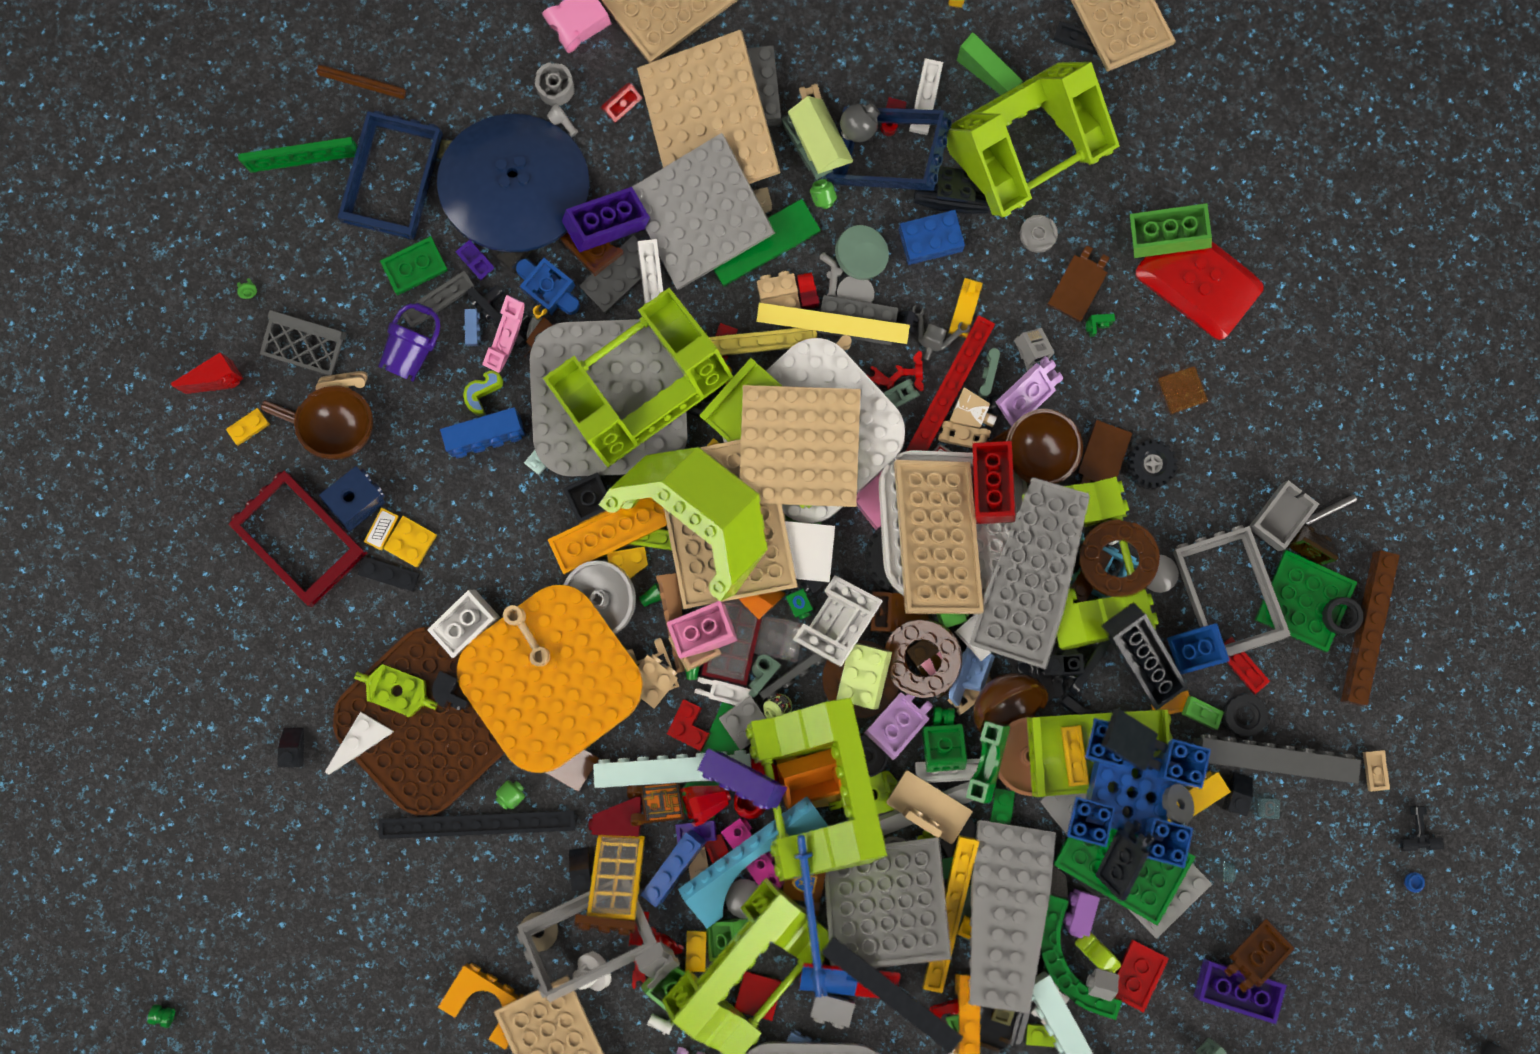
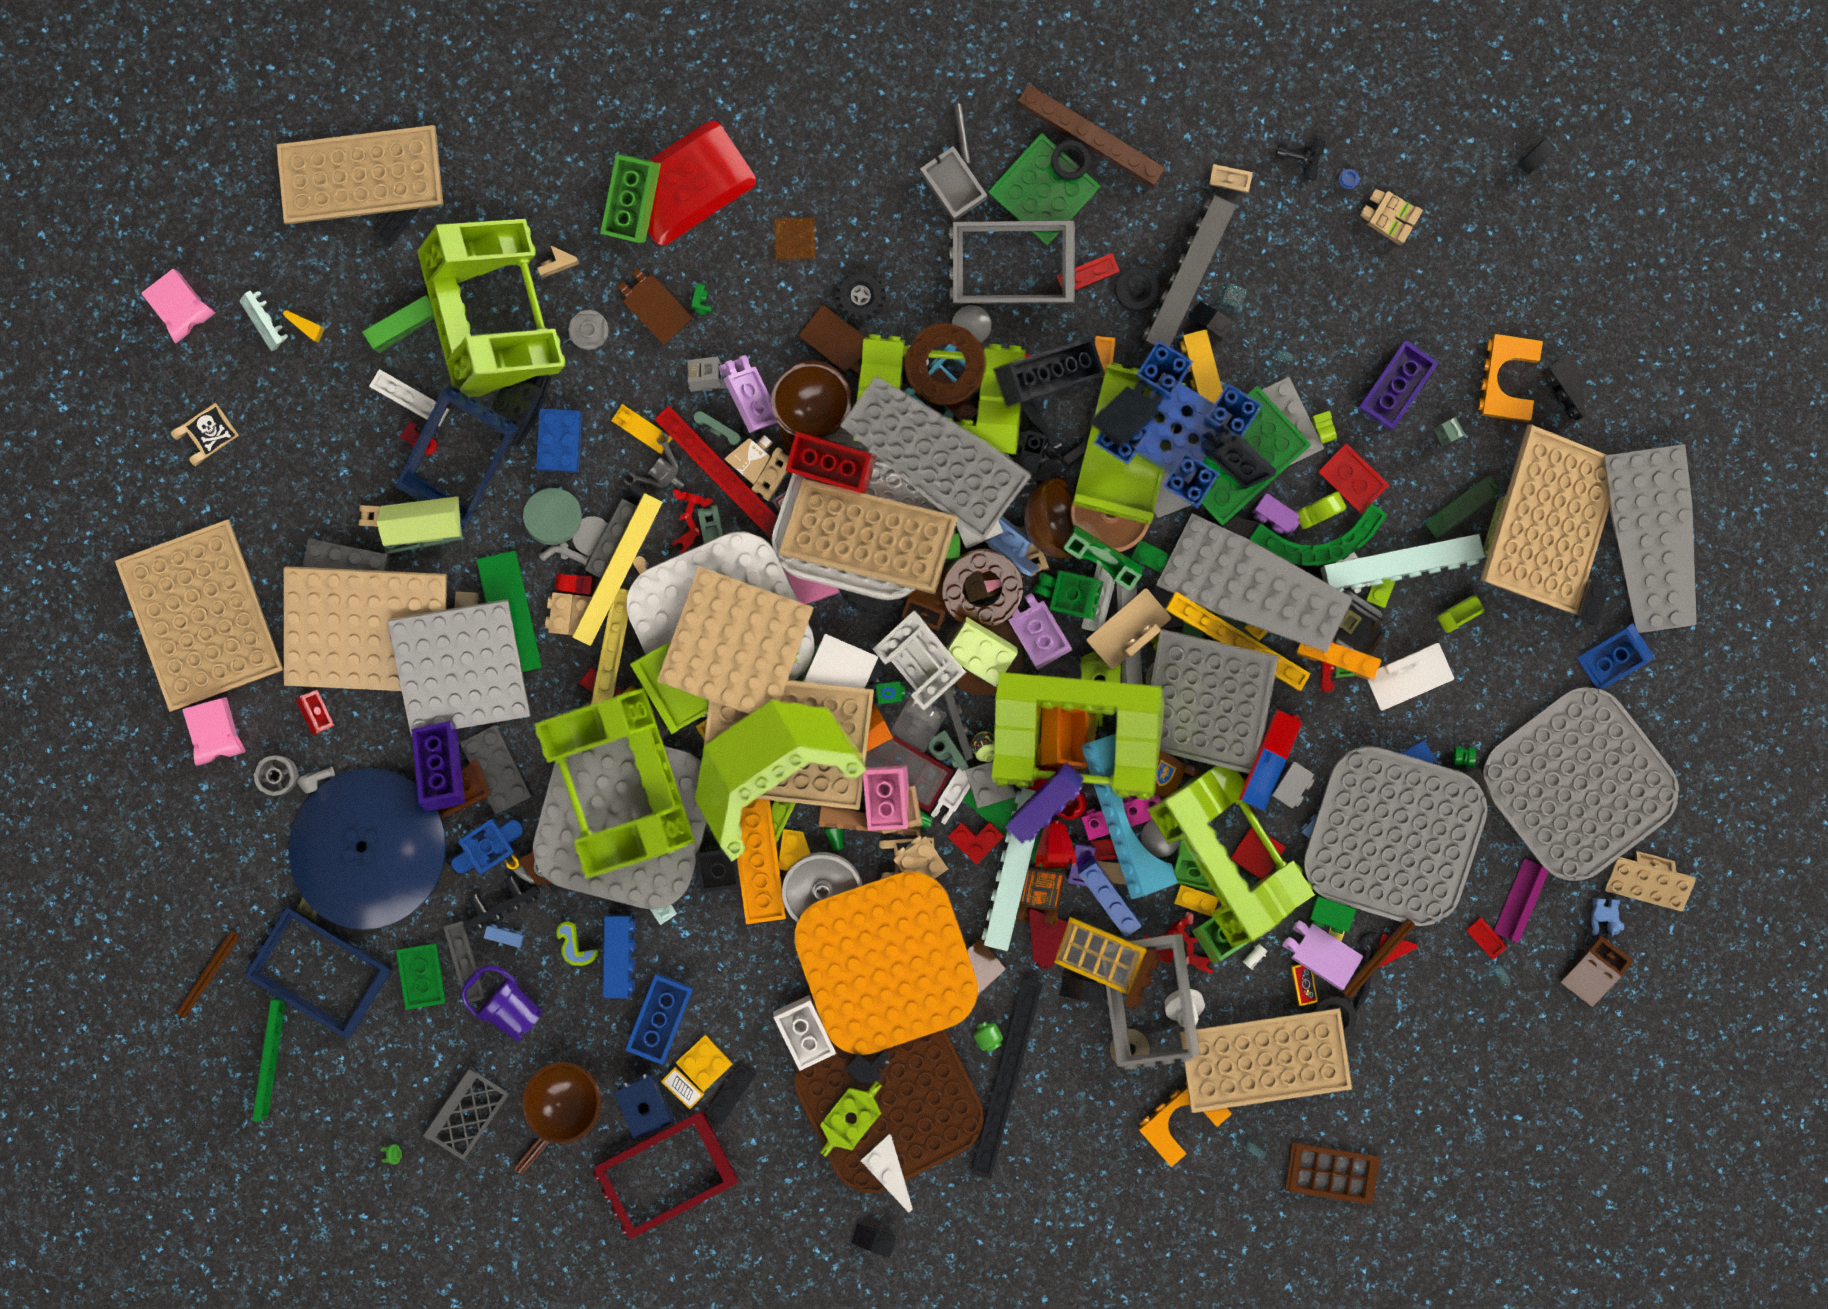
camera: 70 degrees left, 5 degrees up
(212, 375) = (473, 1208): red slope -> none
(247, 426) = (534, 1193): yellow plate -> none
(346, 379) = (518, 1083): tan plate -> none
(437, 488) = (659, 1018): none -> blue brick
(474, 259) = (434, 912): dark purple slope -> none
(506, 334) = (525, 903): bright pink slope -> none
(539, 655) = (861, 966): tan piece -> none
(650, 269) = (506, 737): white plate -> none
(657, 963) = (1194, 940): light grey piece -> none
(818, 974) = (1253, 788): blue bar -> none
(823, 193) = (479, 536): bright green head -> none
(859, 122) = (420, 477): dark grey brick -> none
(892, 994) = (1293, 723): black tile -> none
(1074, 755) = (1118, 470): yellow tile -> none
(1090, 190) = (562, 262): none -> tan slope
(1102, 984) = (1349, 516): light grey brick -> none
(1177, 932) = (1324, 427): none -> lime leg
(1185, 811) = (1204, 380): dark grey tile -> none
(1198, 649) = (1058, 316): blue slope -> none
(1202, 713) = (1121, 329): bright green plate -> none
(1259, 955) = (1369, 355): reddish brown tile -> none
(1314, 546) = (991, 164): dark brown slope -> none
(1395, 935) = (1392, 216): none -> tan hips

